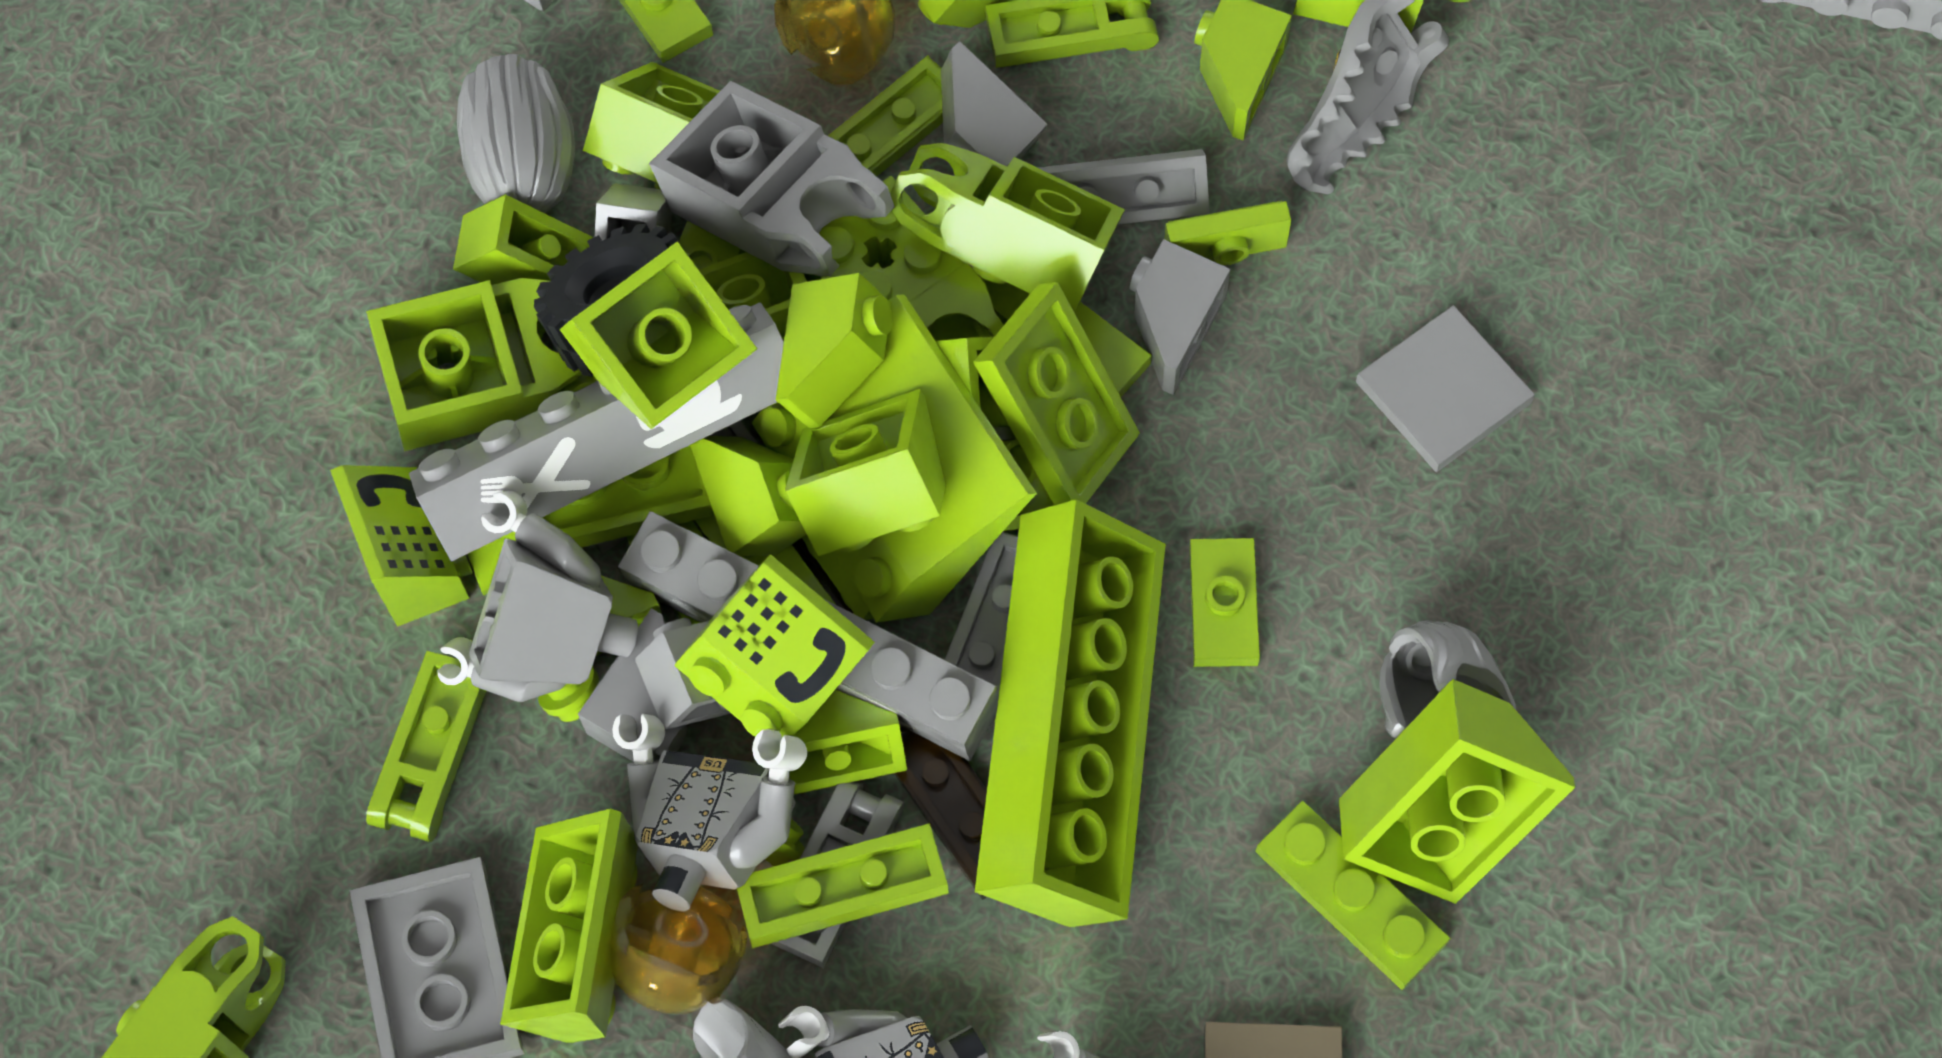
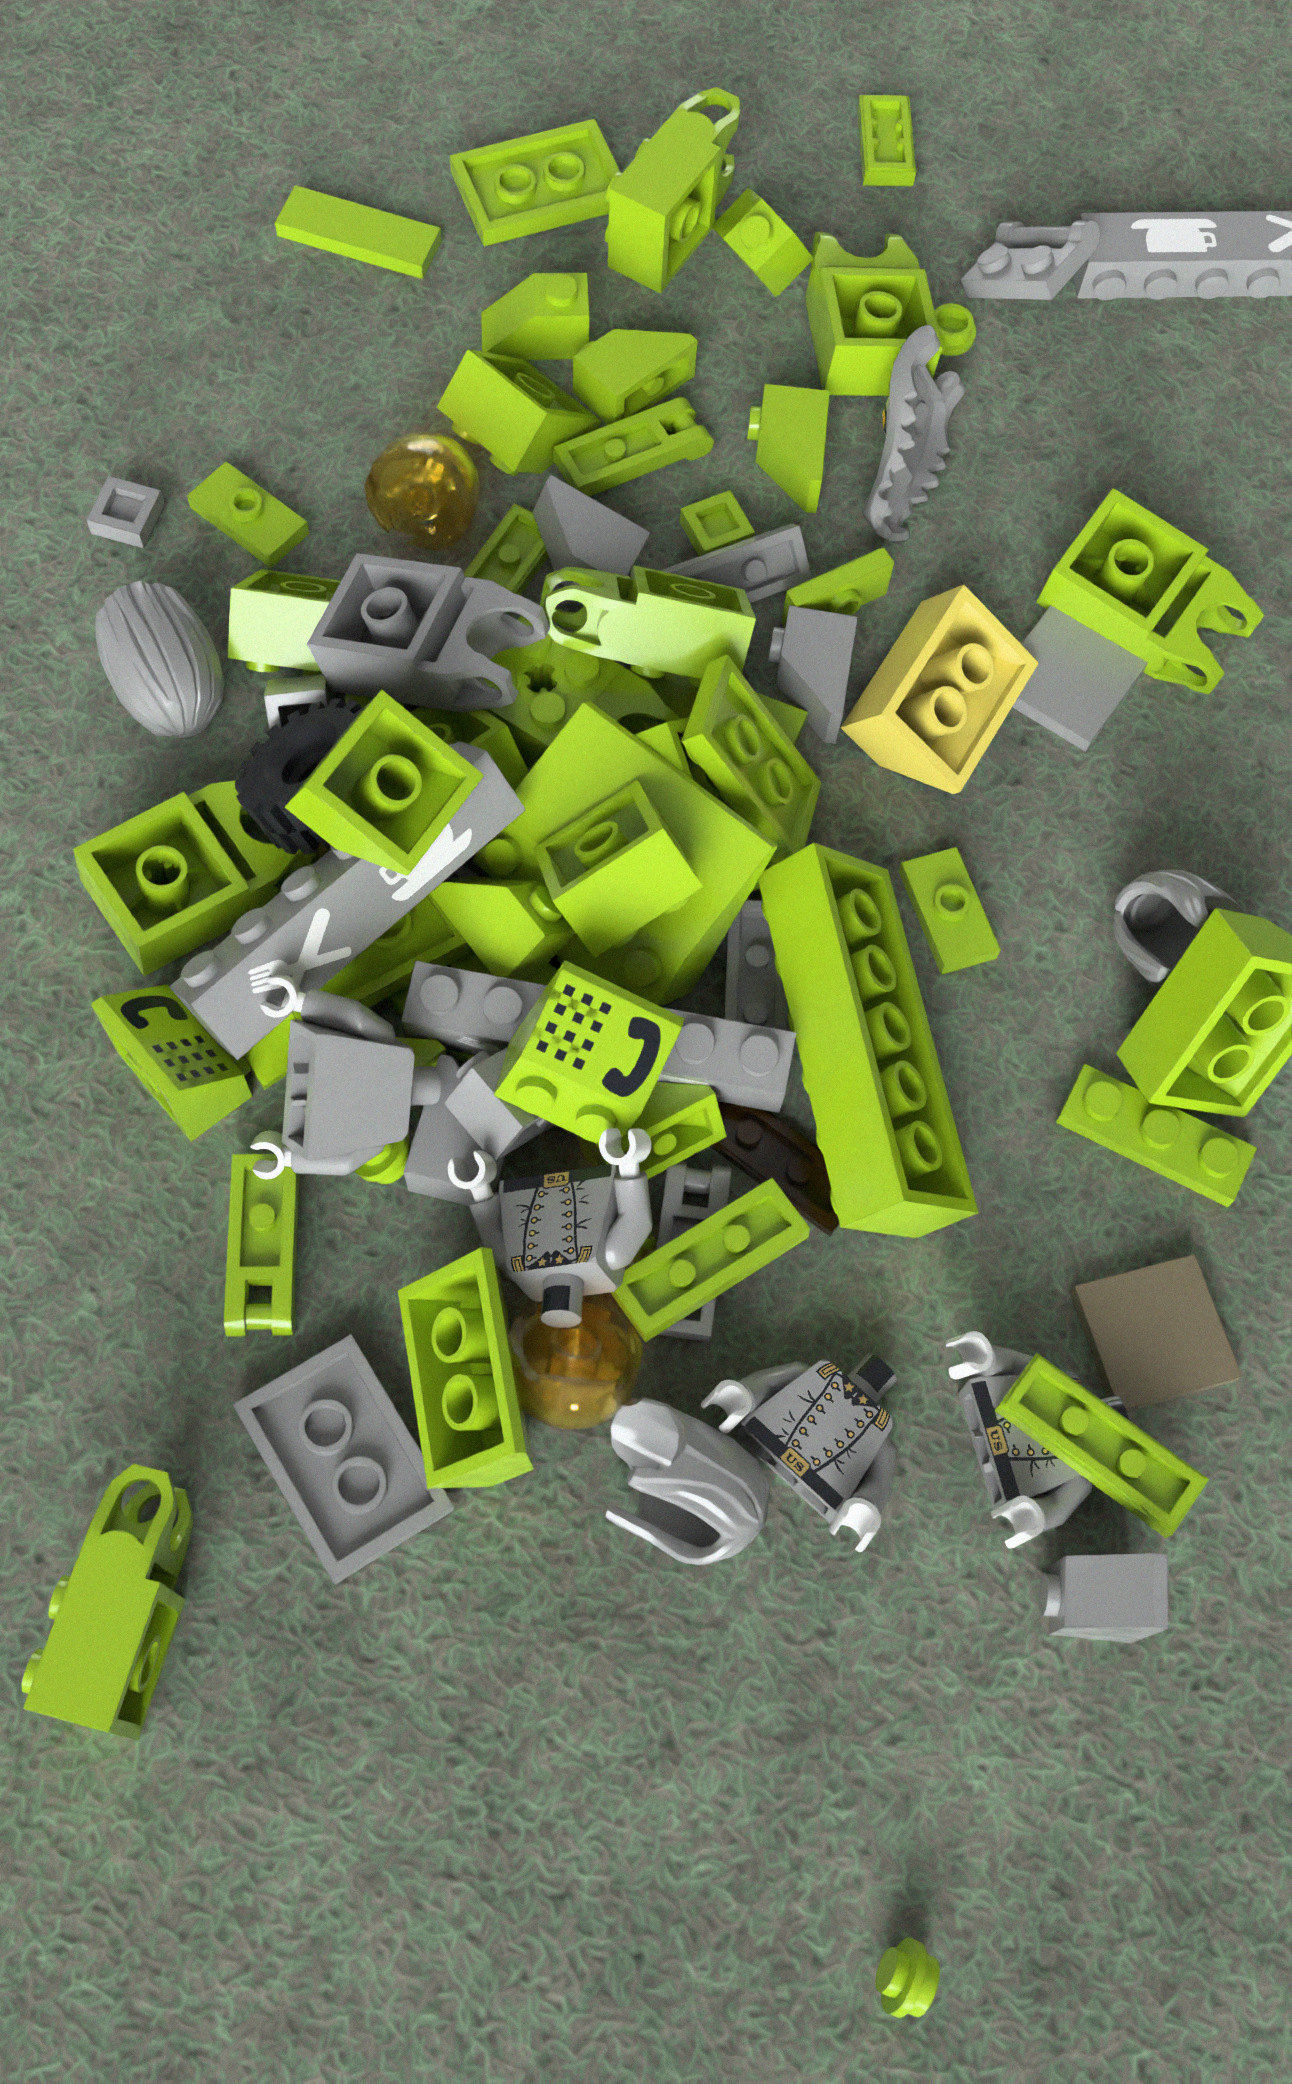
camera: 25 degrees left, 0 degrees up
(513, 242) = (189, 754): lime slope -> none
(830, 344) = (542, 758): lime slope -> none
(1127, 128) = (715, 523): none -> lime plate
(1296, 371) = (941, 692): none -> light yellow slope
(1568, 336) = (1149, 592): none -> lime brick

